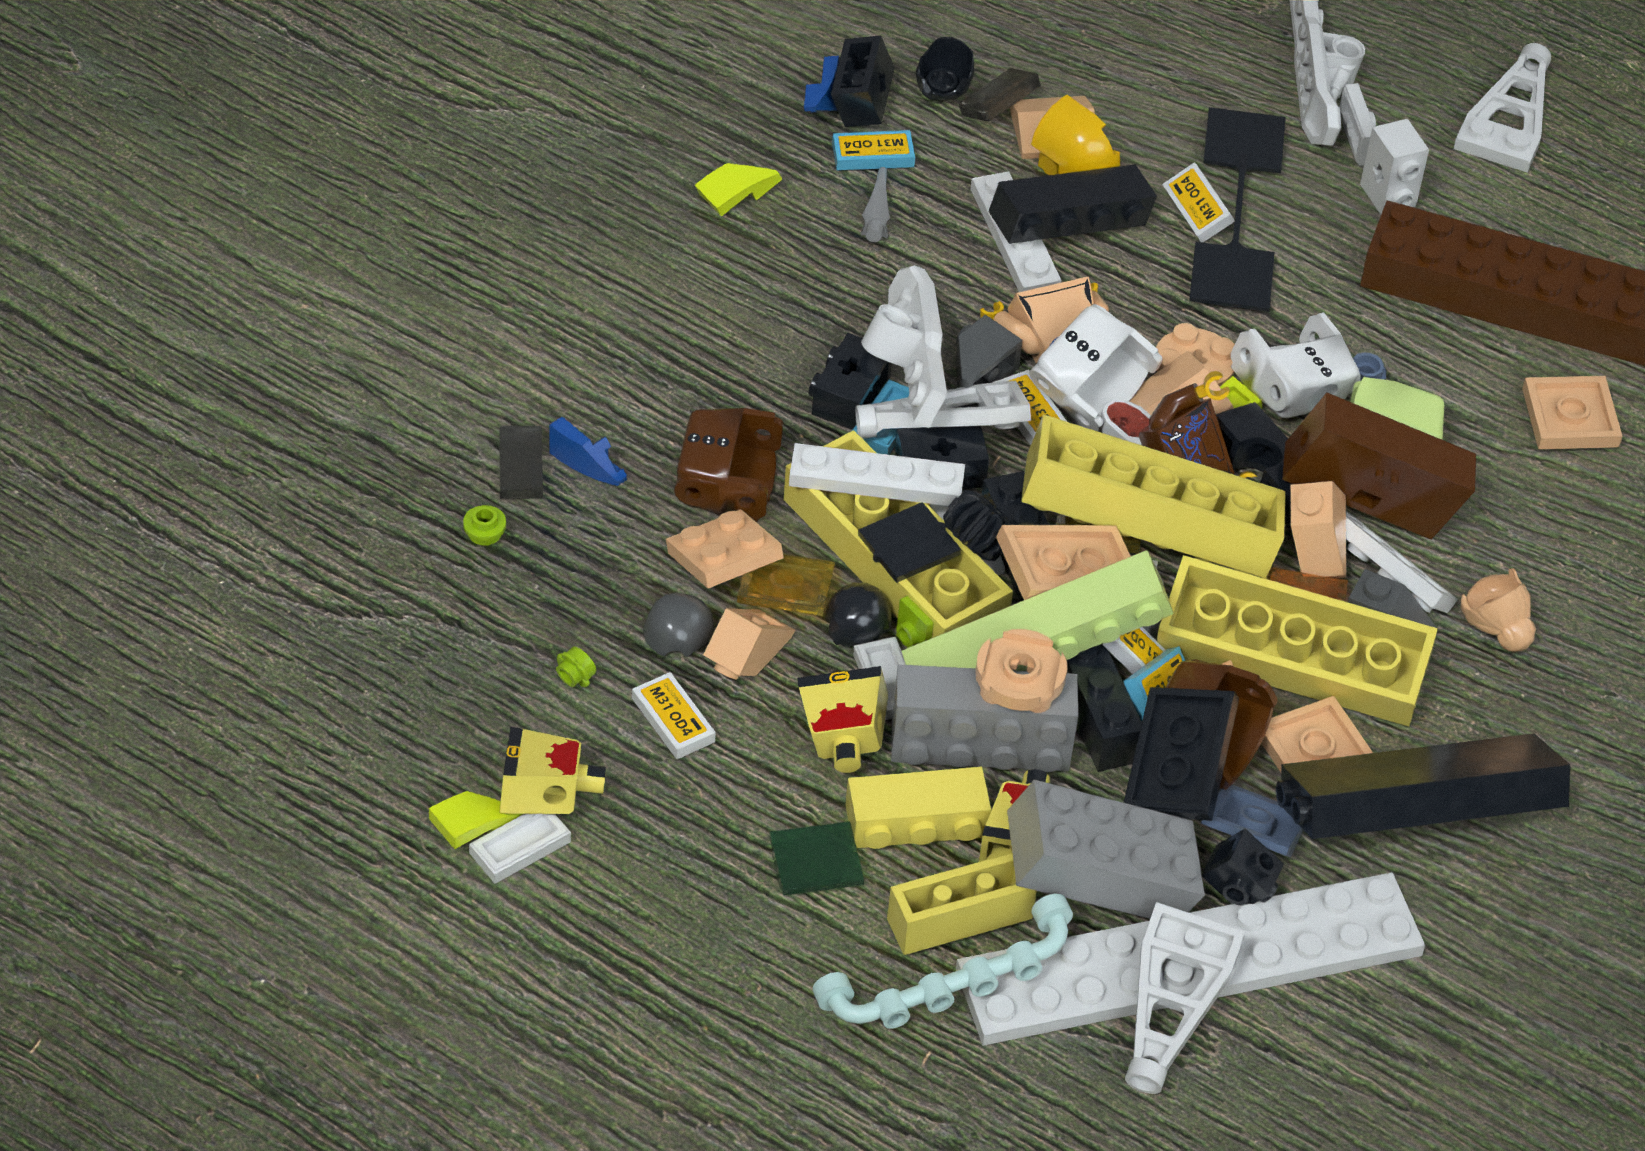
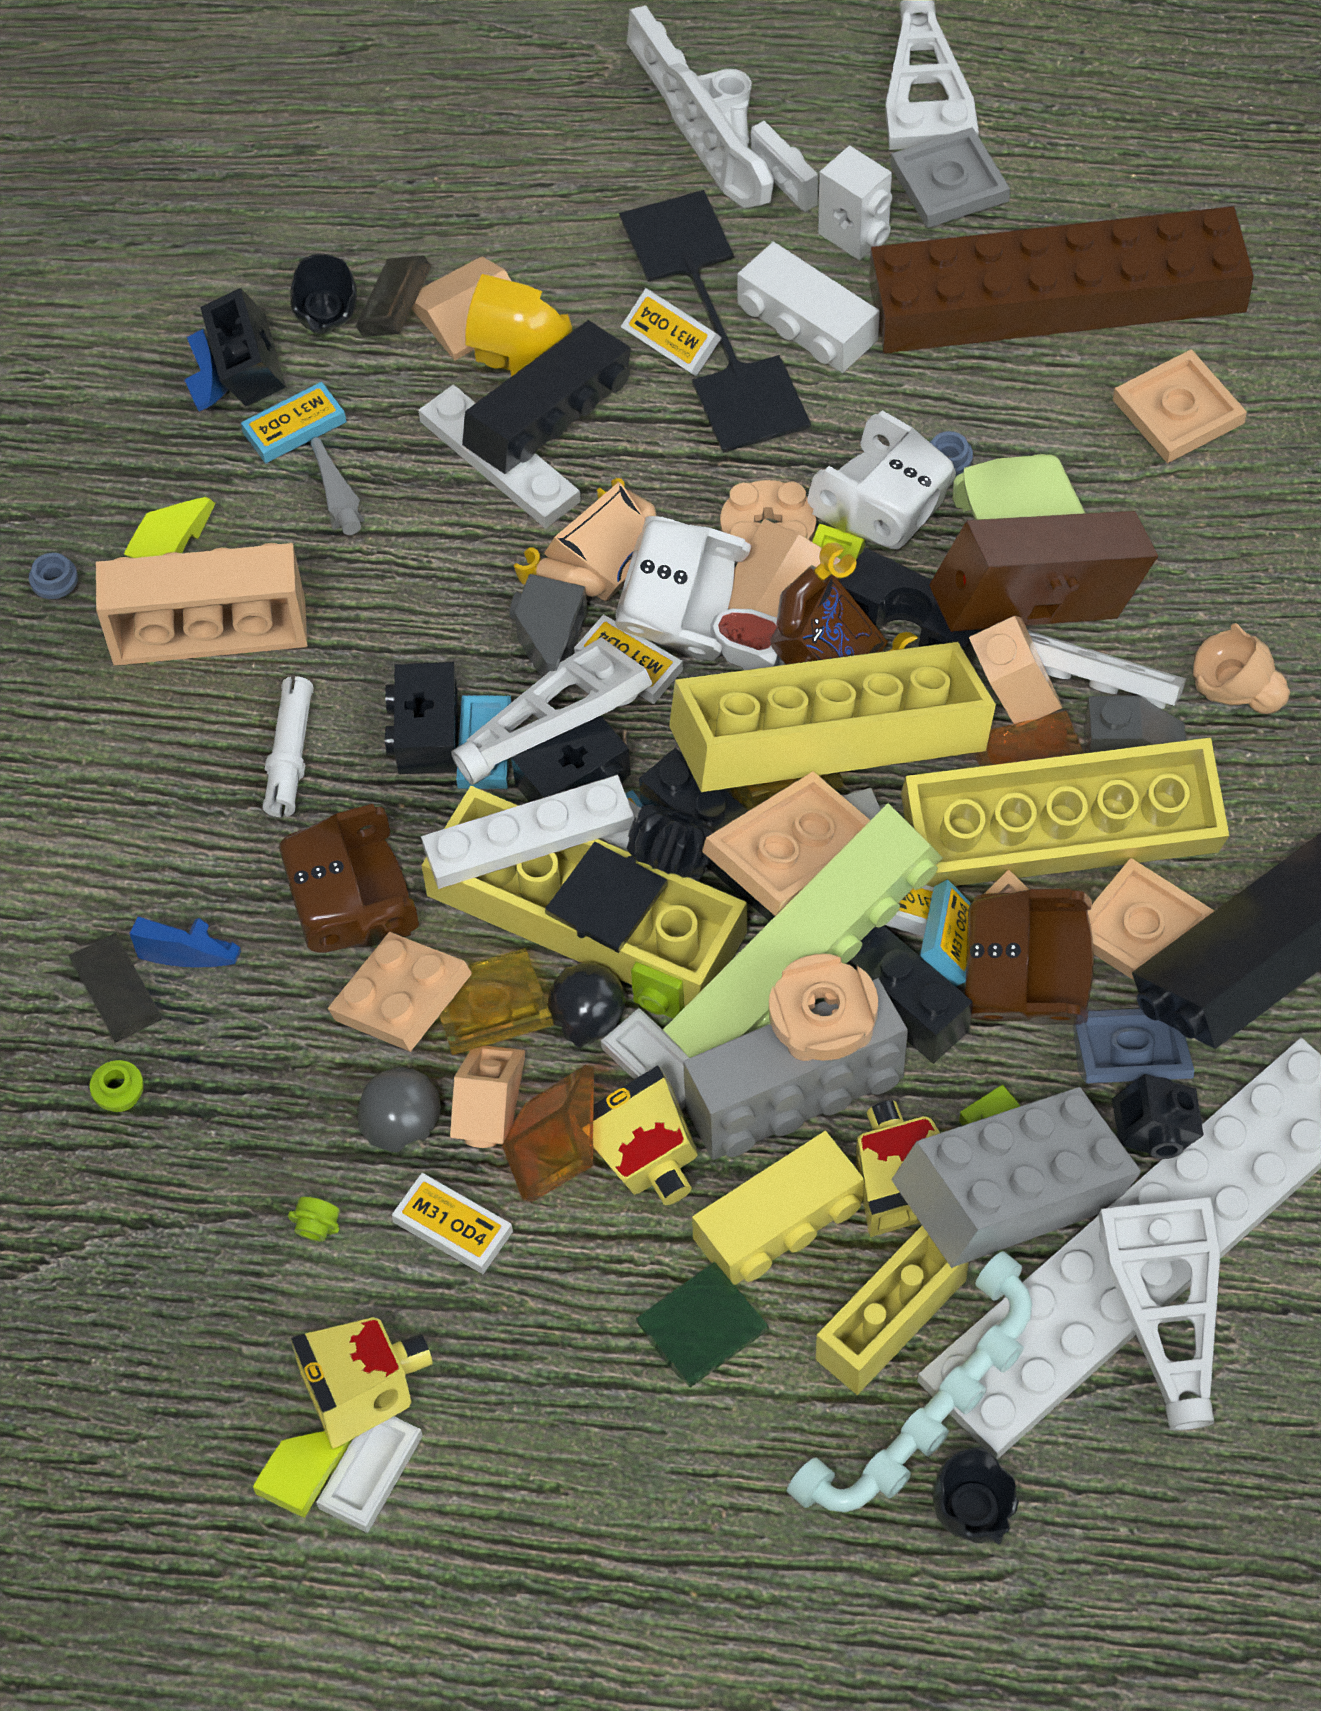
camera: 20 degrees left, 10 degrees up
(634, 178) = (48, 567): none -> sand blue plate
(729, 235) = (201, 604): none -> light nougat brick
(730, 368) = (286, 762): none -> white pin
(776, 685) = (553, 1136): none -> clear orange slope
(911, 336) = (473, 643): white piece -> none
(948, 1049) = (975, 1496): none -> black hair
(1182, 751) = (1030, 1016): black tile -> none
(1315, 227) = (807, 307): none -> white brick
(1487, 183) = (950, 177): none -> light grey plate

